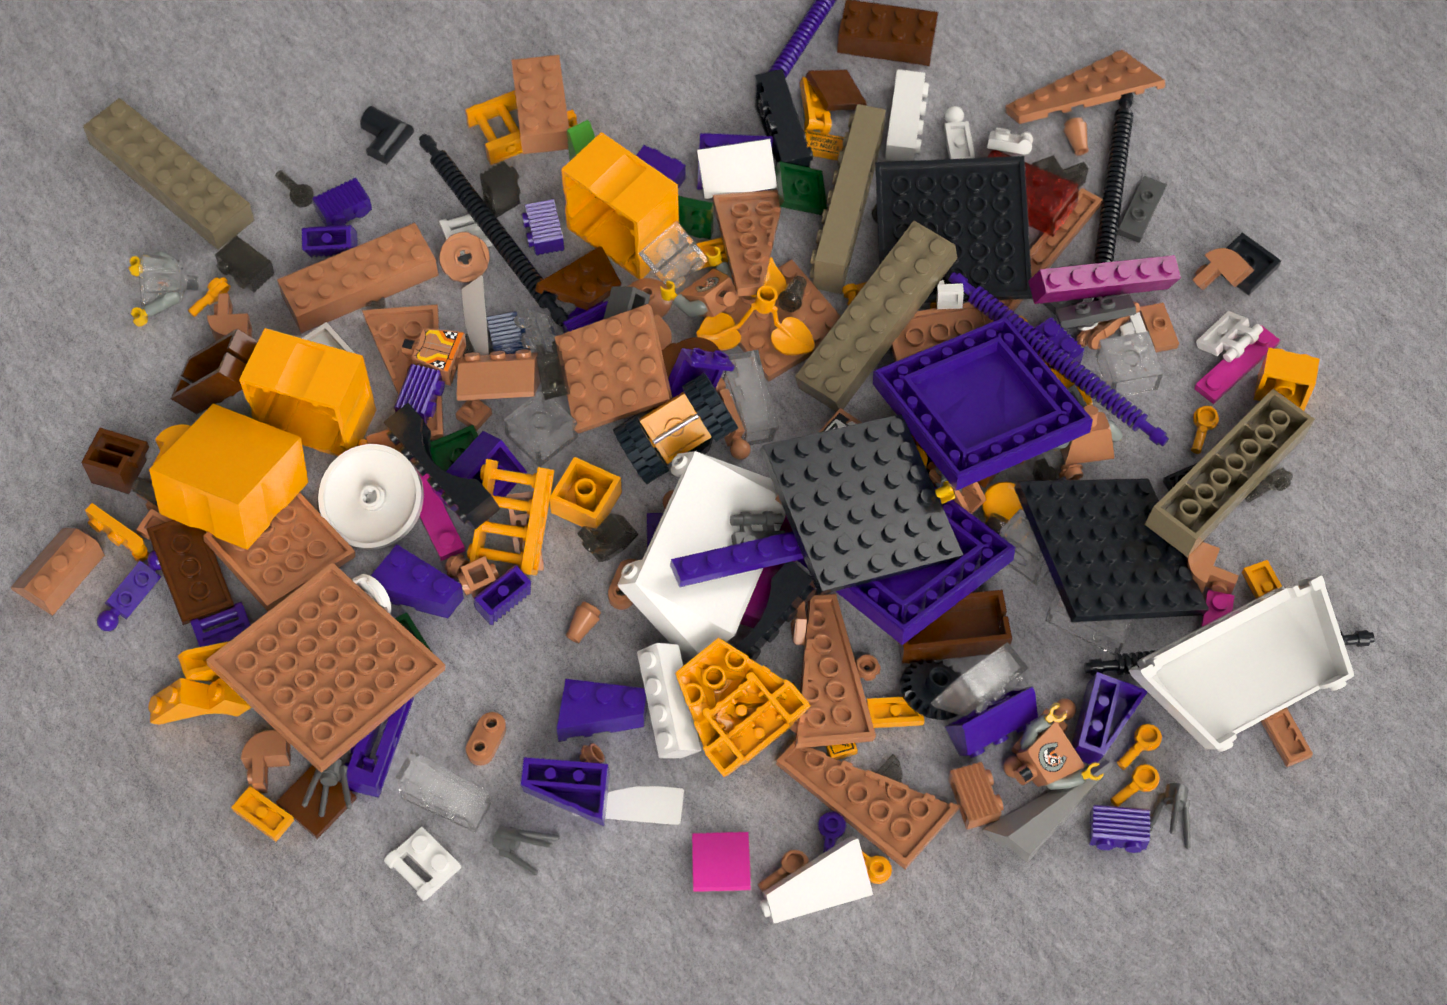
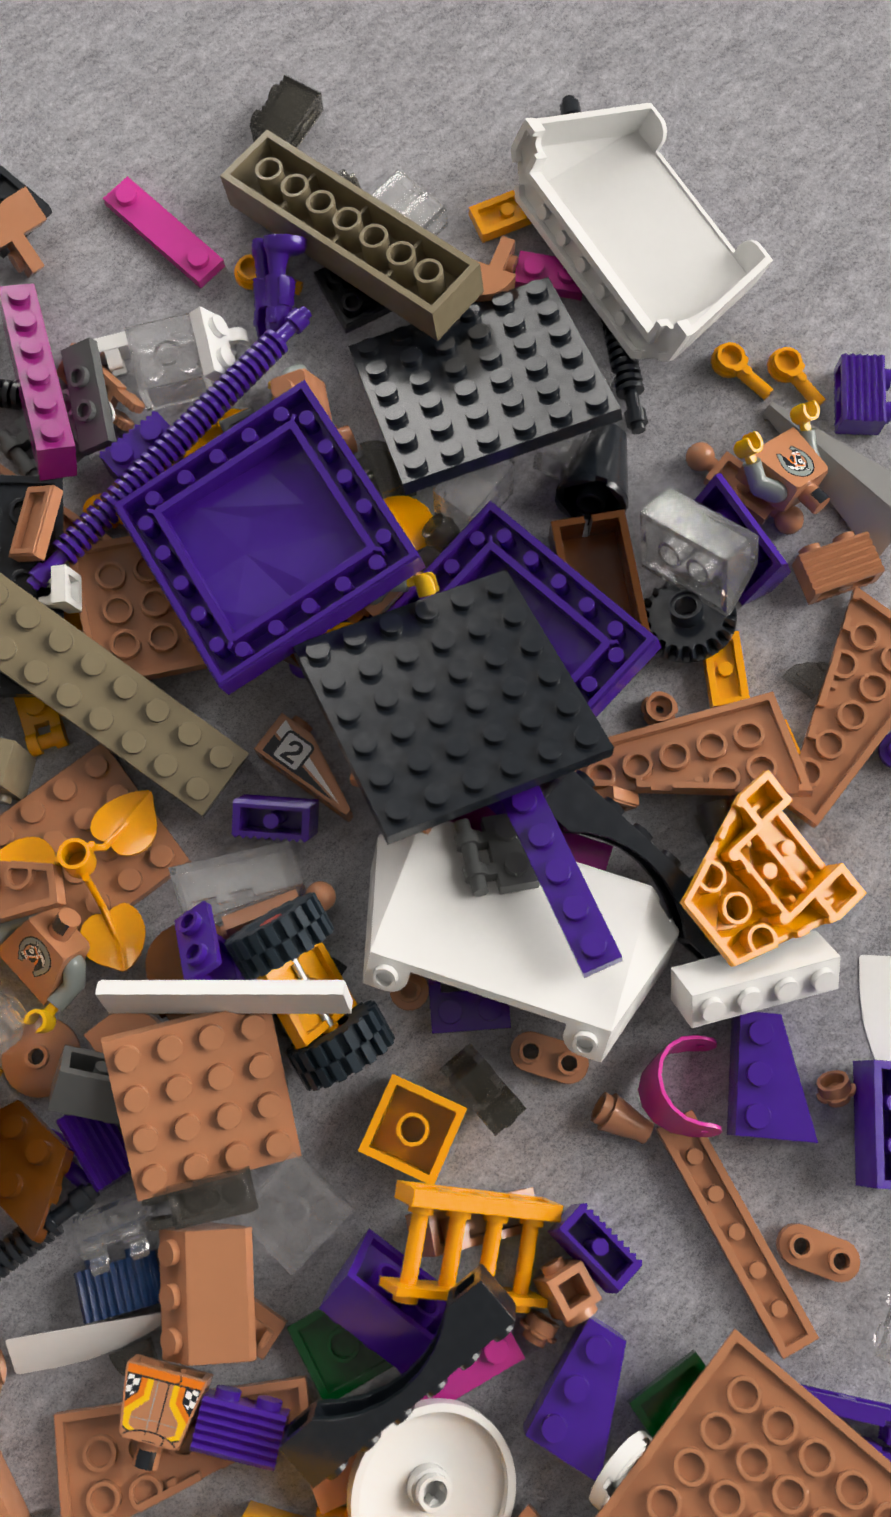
camera: 90 degrees left, 15 degrees up
(504, 686) = (740, 1241): none -> nougat plate
(617, 641) = (655, 1099): none -> dark pink piece
(672, 371) = (225, 995): none -> white tile
(792, 296) = (50, 823): clear smoke cone -> none
(793, 416) = (275, 817): none -> dark purple brick
(994, 276) = (35, 523): none -> nougat tile
(1046, 632) = (596, 476): none -> black cone
(1103, 714) = (716, 407): dark purple wedge -> none
(1140, 385) = (215, 342): none -> white plate
(1159, 326) = (101, 321): nougat plate -> none
(1175, 800) = (813, 330): dark grey plant -> none
(1187, 425) = (272, 287): none -> dark purple piece
(1224, 332) = (116, 241): white plate -> none
(1261, 519) = (411, 201): none -> clear brick
(1287, 737) = (724, 197): nougat plate -> none
(1288, 374) = (195, 162): light orange brick -> none
(1337, 440) = (288, 112): none -> clear smoke brick

